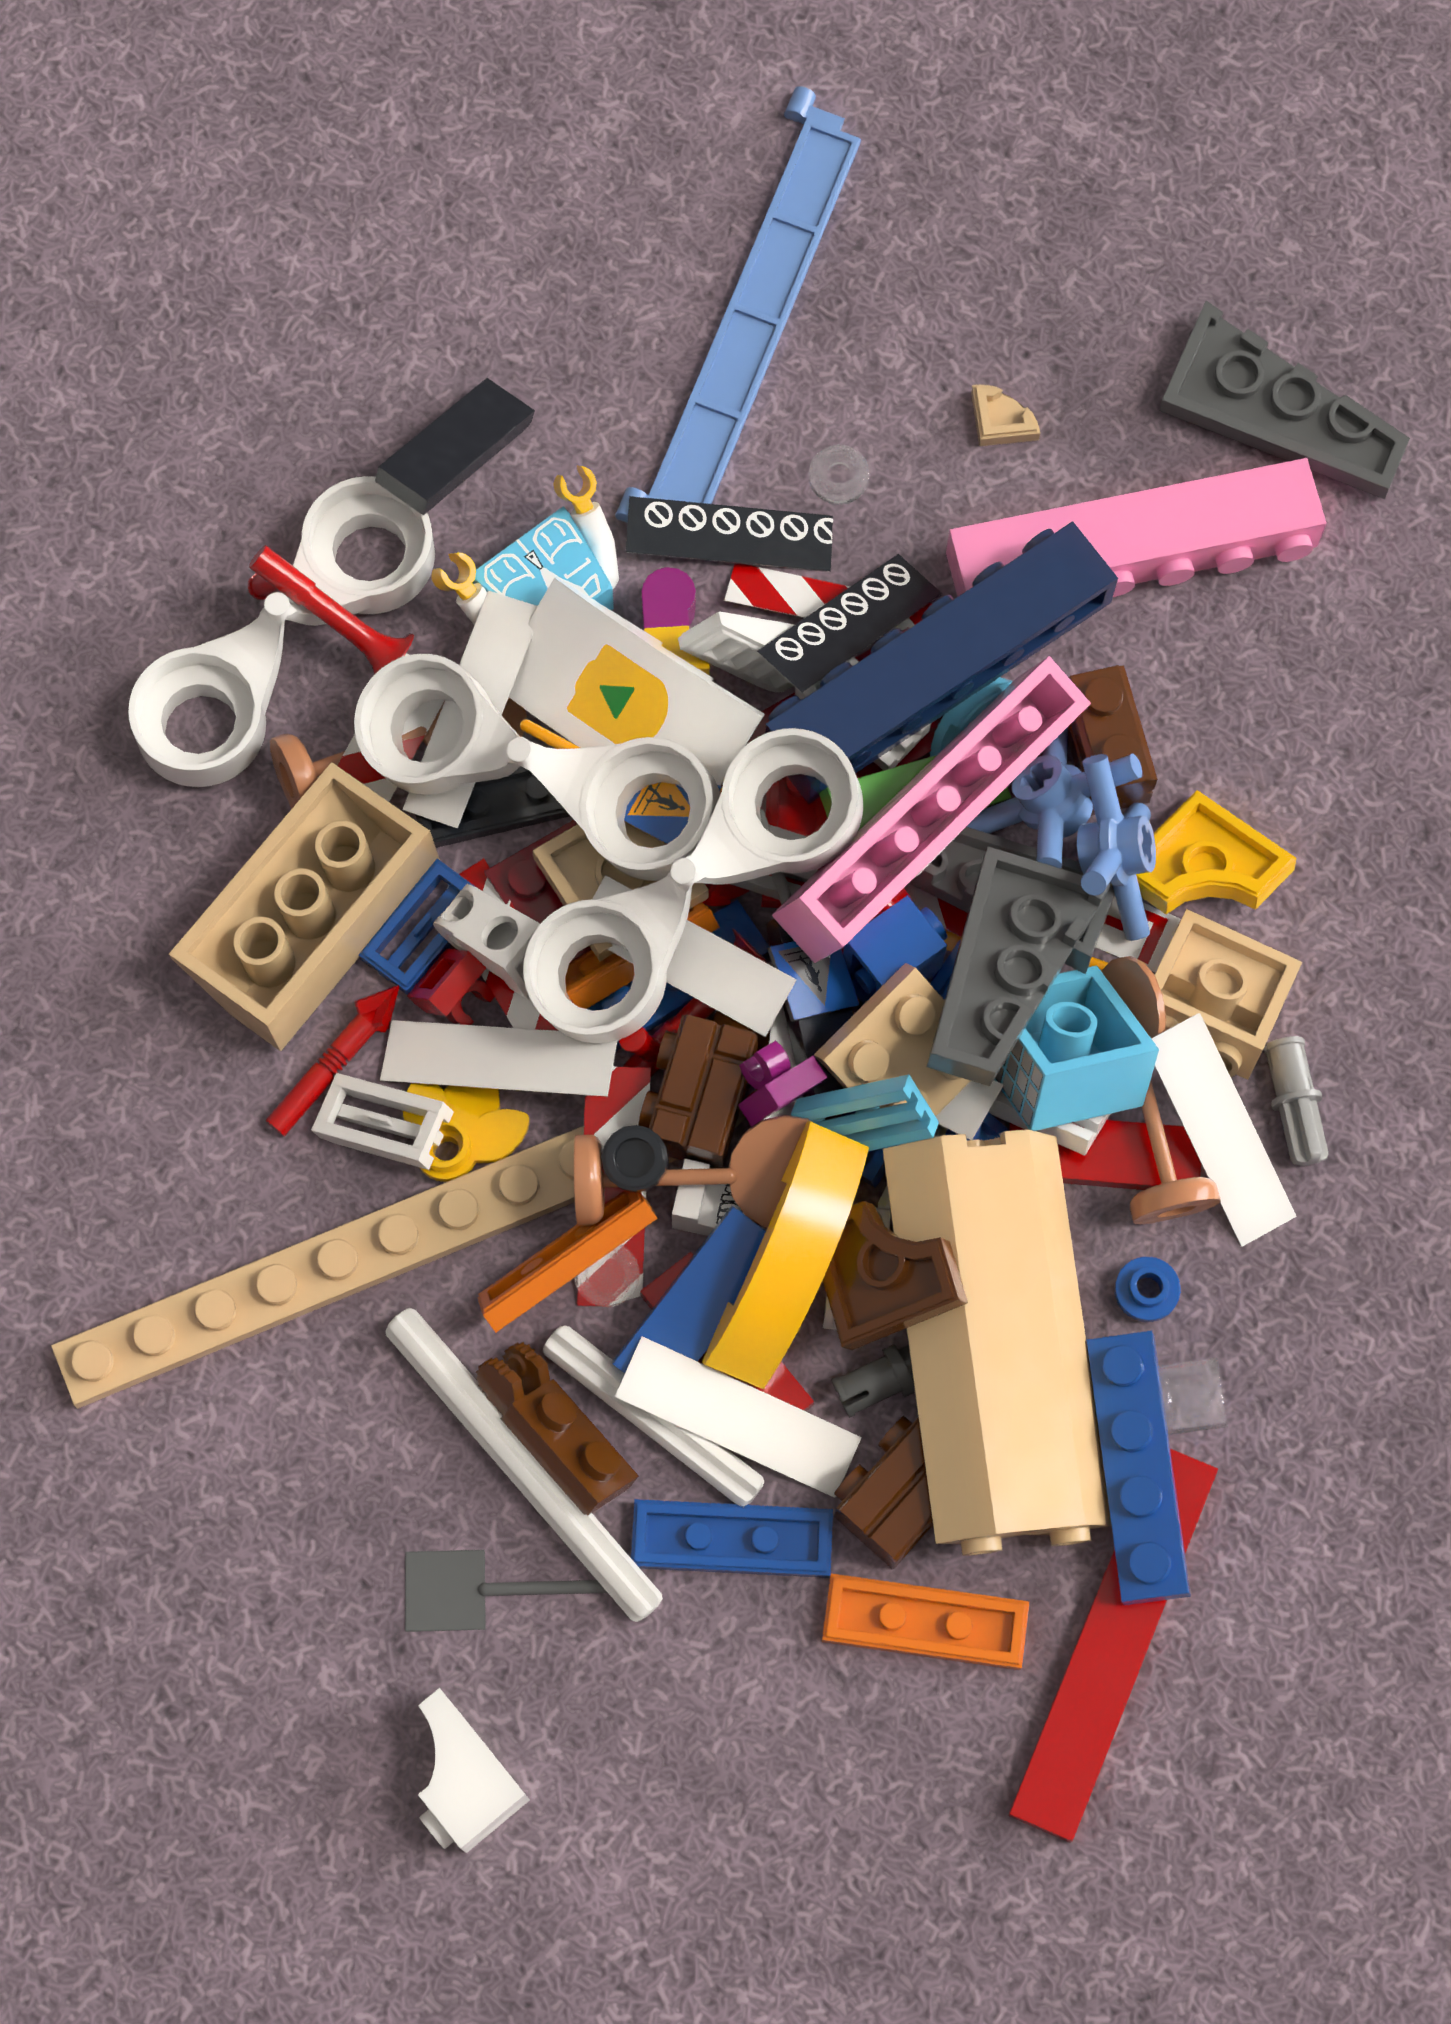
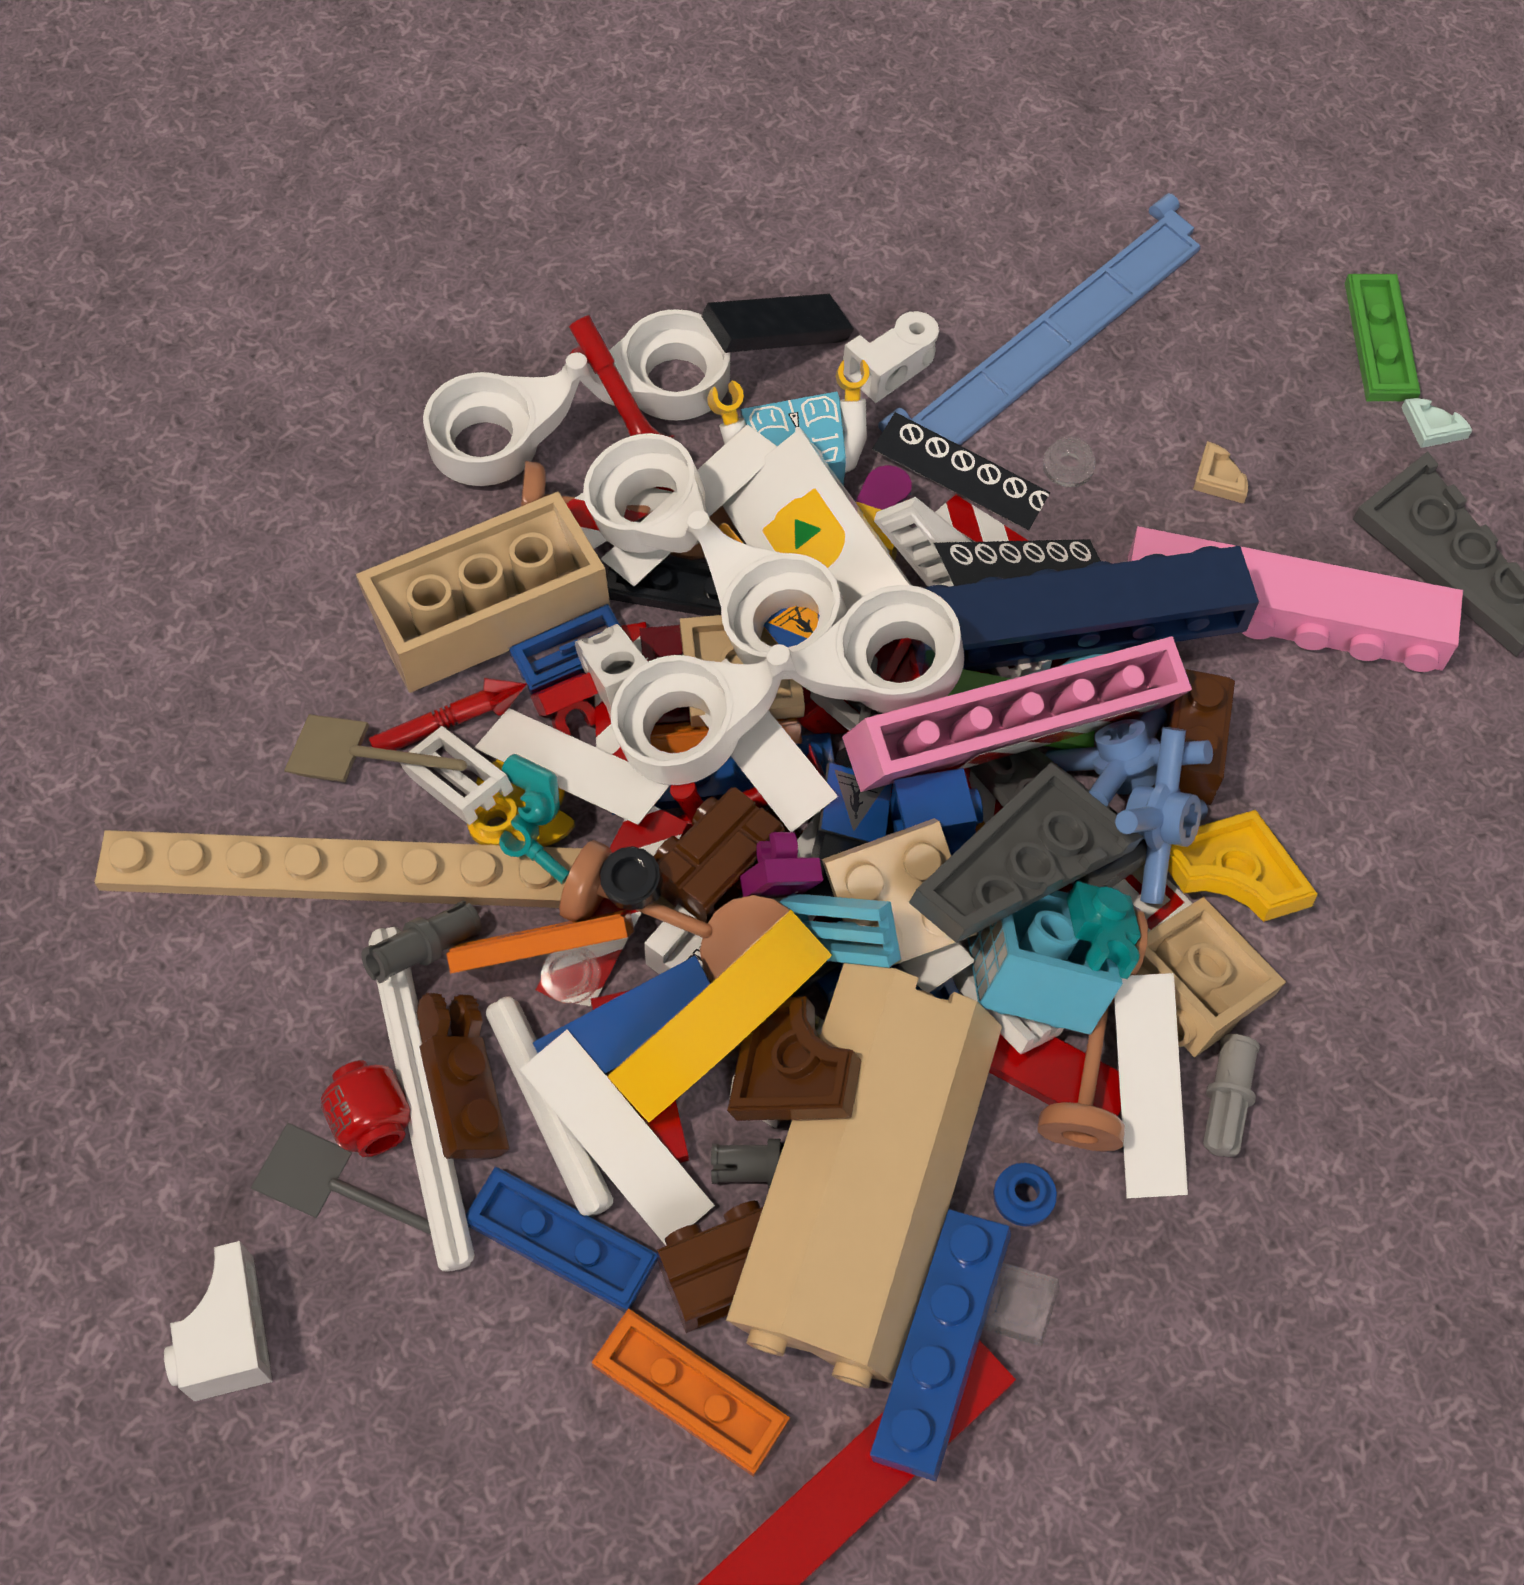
camera: 25 degrees right, 10 degrees down
(230, 1145) = (332, 744): none -> dark tan piece
(445, 1312) = (421, 941): none -> dark grey pin
(480, 1502) = (366, 1108): none -> red head
(484, 1100) = (540, 789): none -> teal arm
(500, 1165) = (531, 848): none -> teal hand
(597, 426) = (894, 355): none -> white leg
(1100, 172) = (1382, 337): none -> bright green tile
(1115, 990) = (1106, 921): none -> teal plate
(1196, 256) = (1433, 424): none -> light aqua tile

